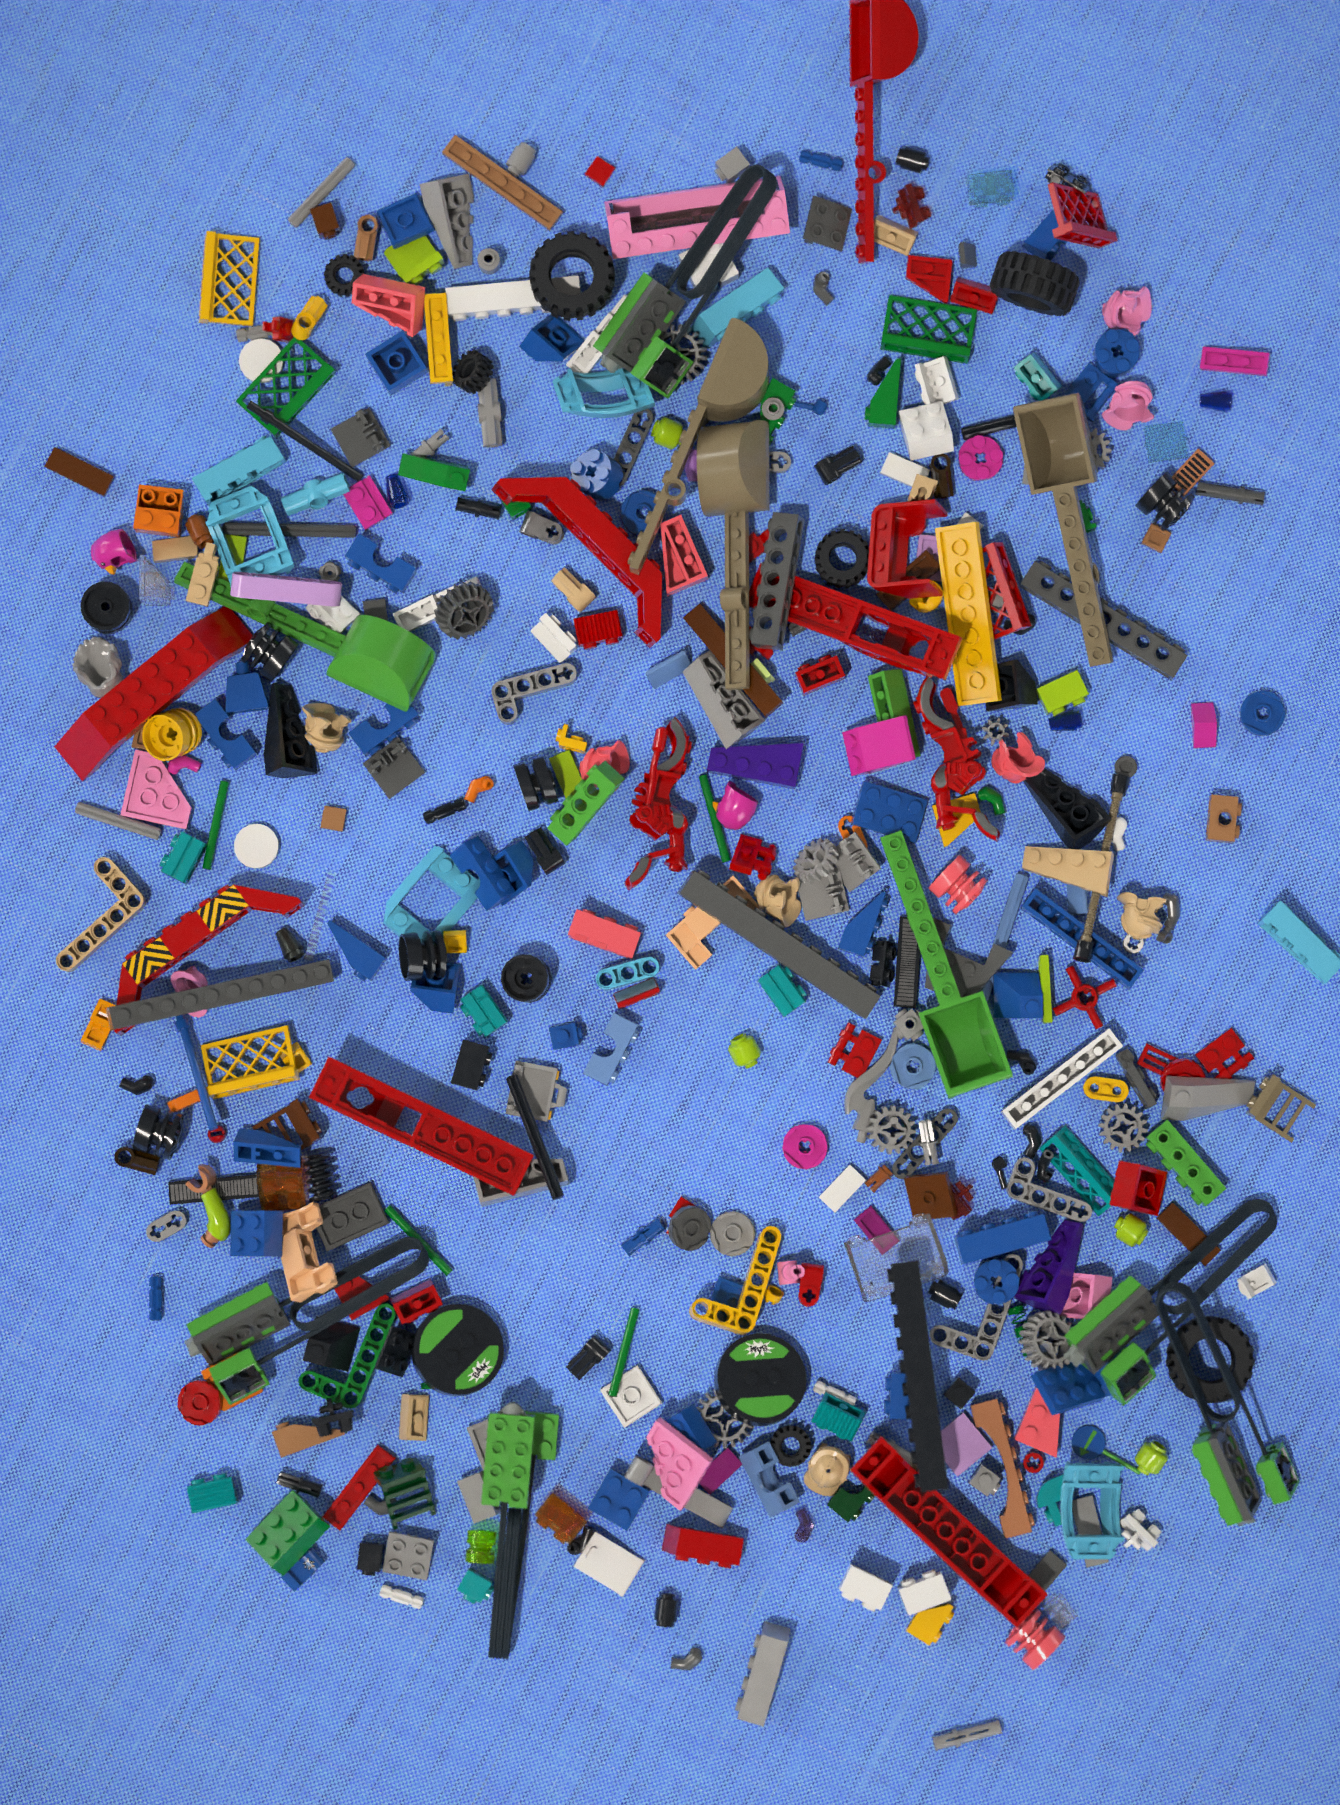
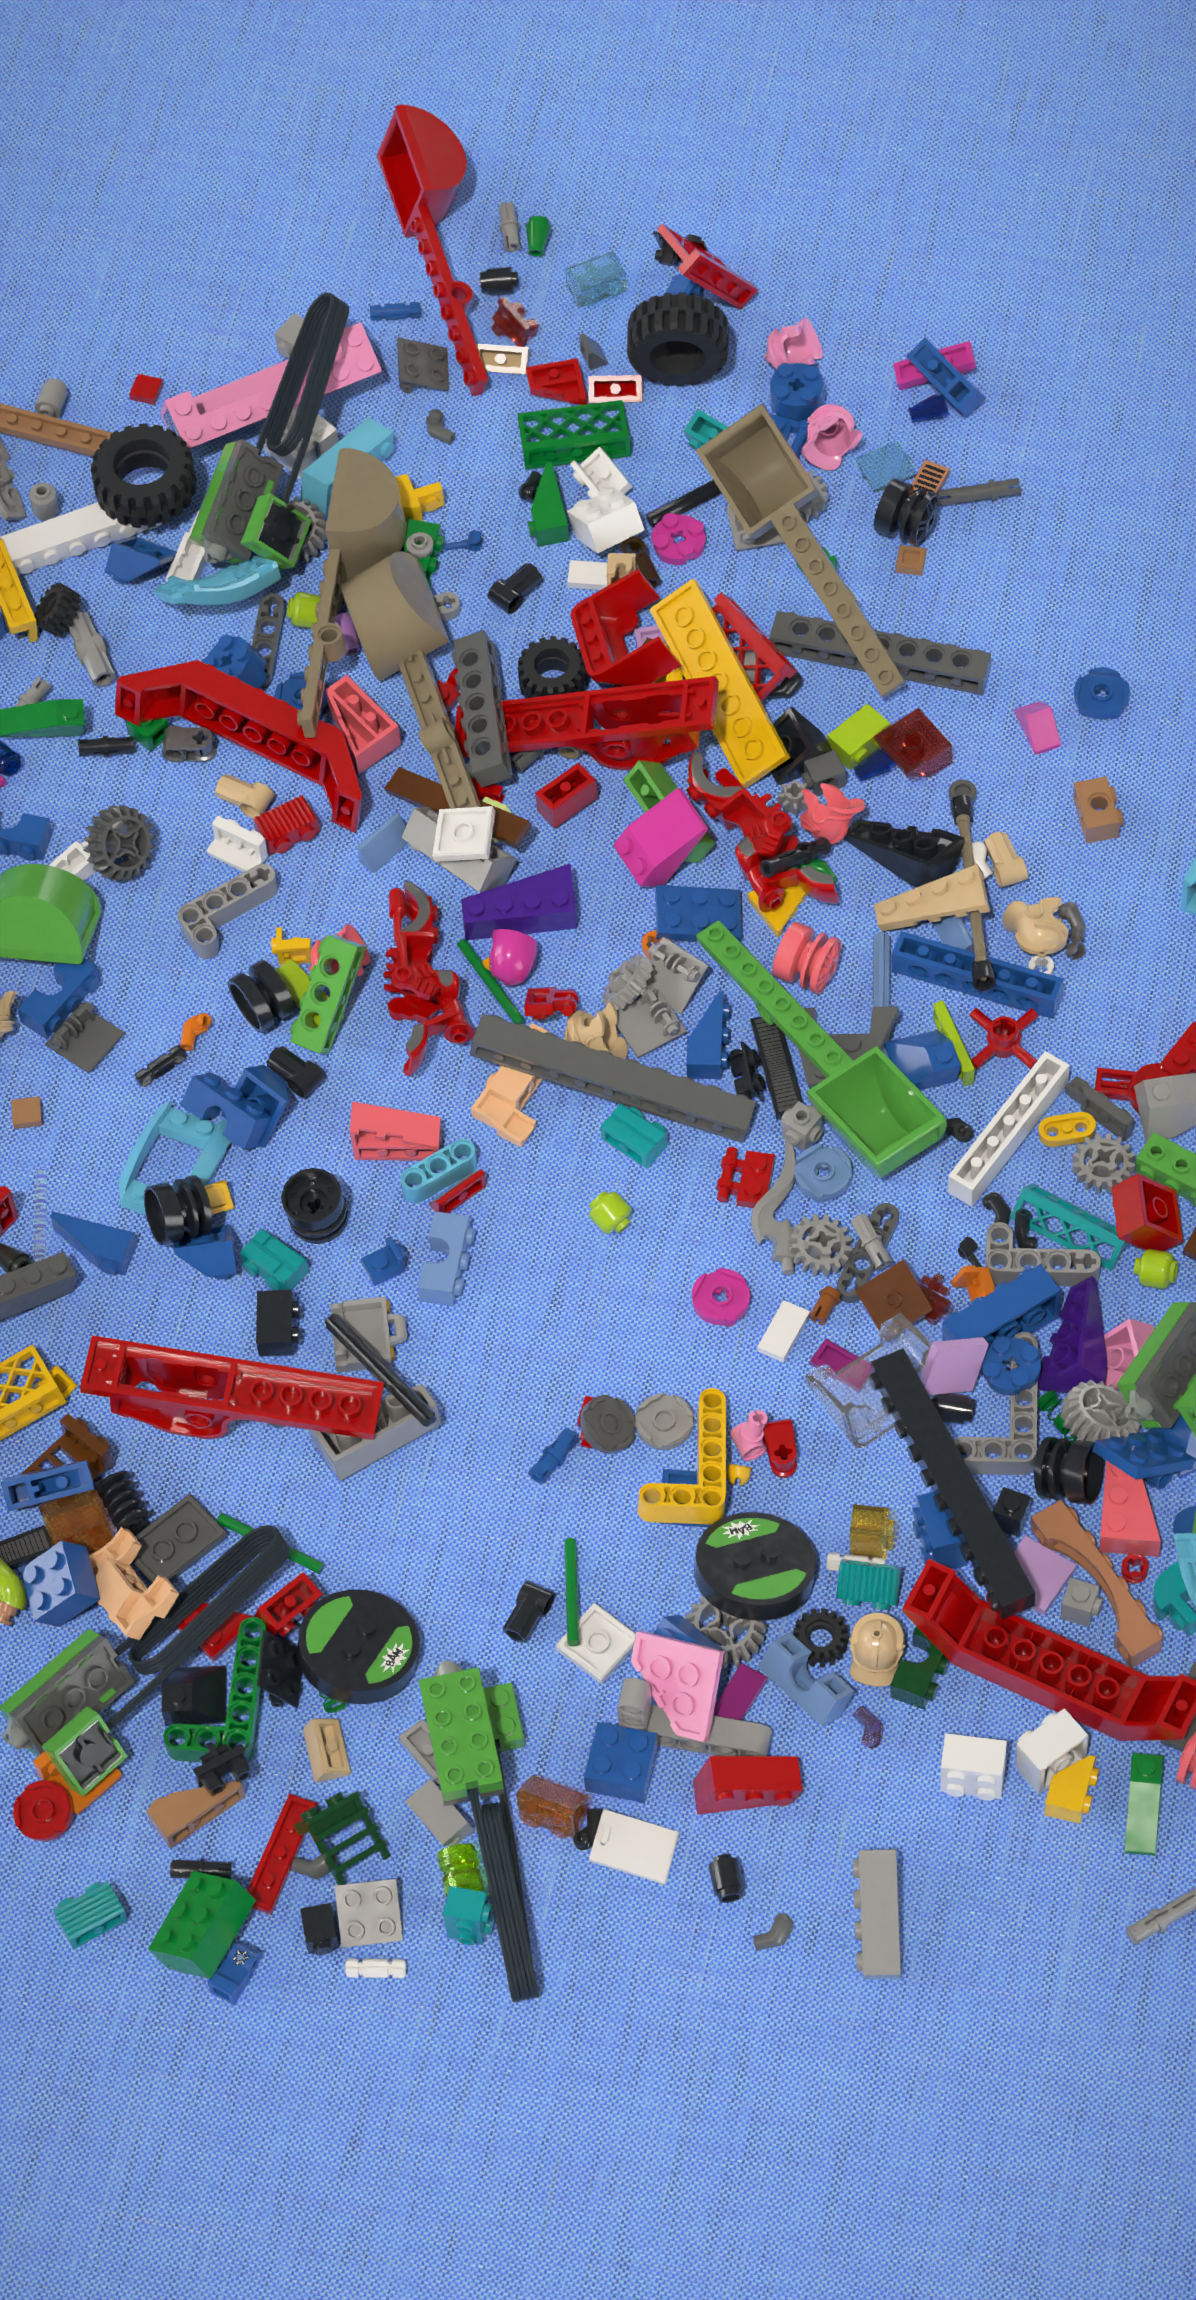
camera: 15 degrees left, 25 degrees down
(727, 701) = (463, 834): none -> white tile
(778, 356) = (420, 499): none -> yellow brick
(852, 1381) = (871, 1531): none -> clear yellow brick
(936, 107) = (509, 227): none -> light grey axle
(952, 1273) = (953, 1365): none -> lavender tile
(957, 123) = (537, 235): none -> green cone
(976, 1649) = (1143, 1804): none -> slope
(994, 787) = (802, 854): none -> black pin
(997, 1202) = (976, 1280): none -> orange bracket
(1007, 1377) = (1068, 1470): none -> black wheel
(1024, 718) = (824, 769): none -> dark grey brick
(1100, 721) = (916, 745): none -> clear red slope
(1138, 846) = (1006, 865): none -> tan piece
(1238, 382) = (946, 377): none -> blue slope

